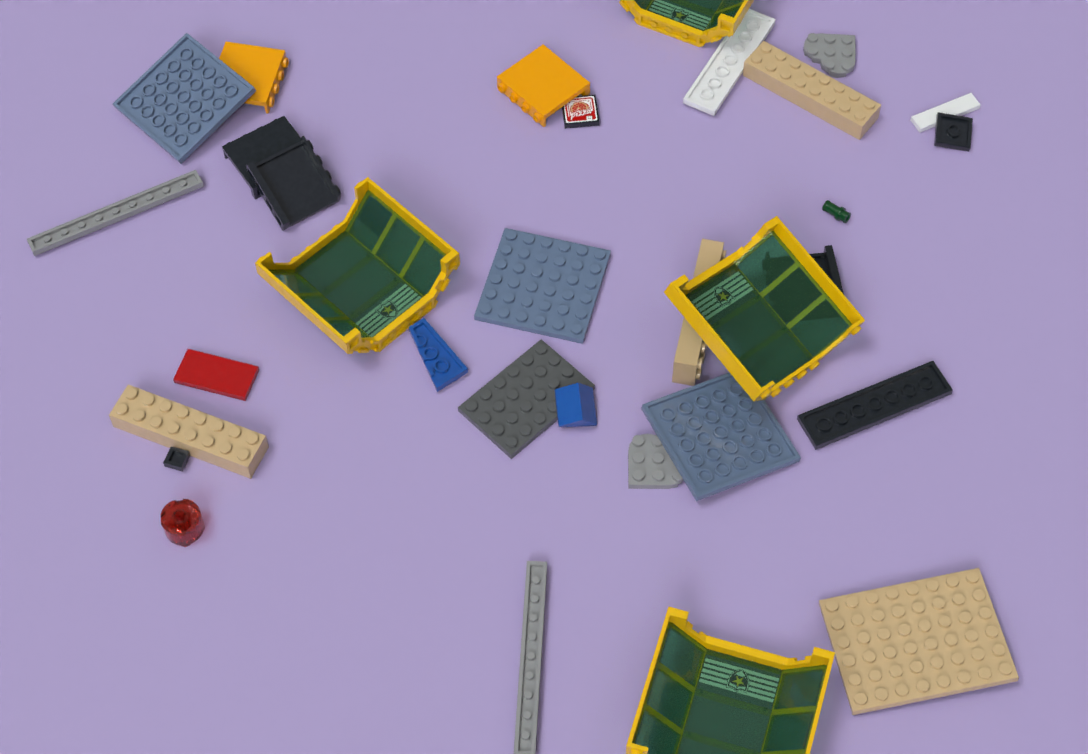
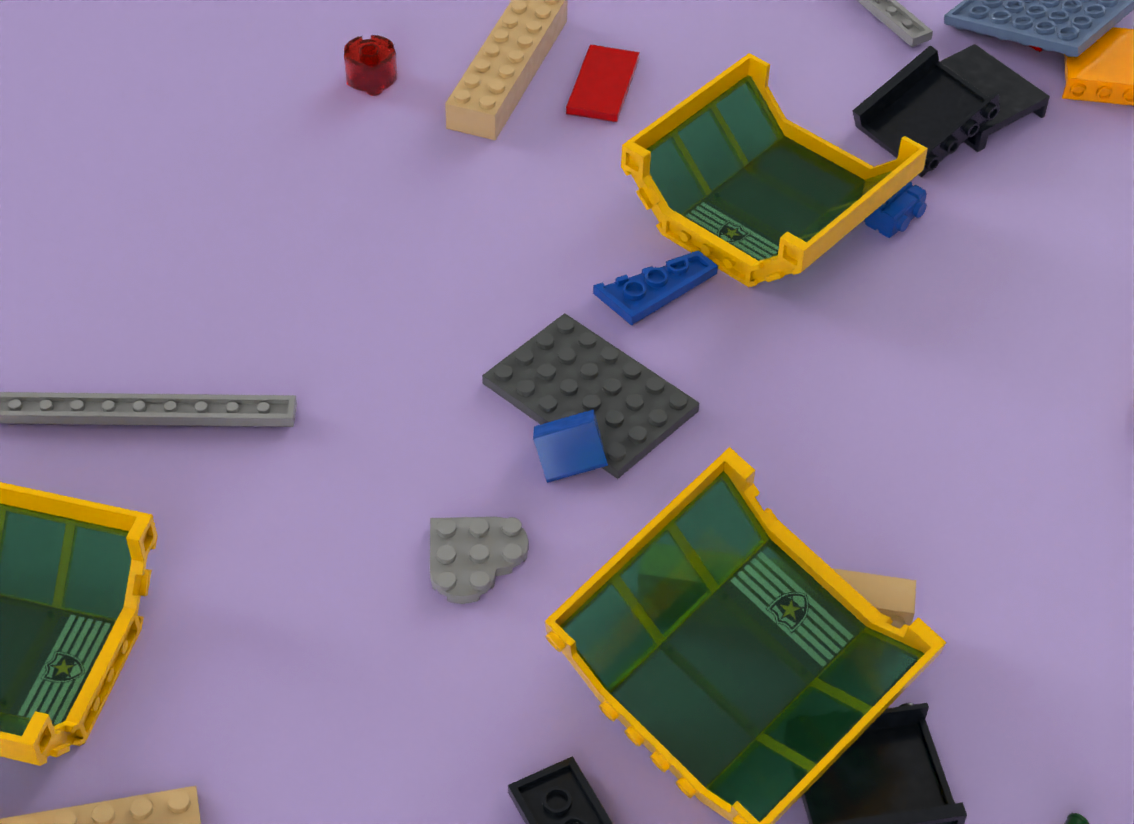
camera: 85 degrees right, 10 degrees down
(176, 458) = (465, 56): black plate -> none
(543, 285) = (810, 408): sand blue plate -> none
(719, 435) = (487, 639): sand blue plate -> none

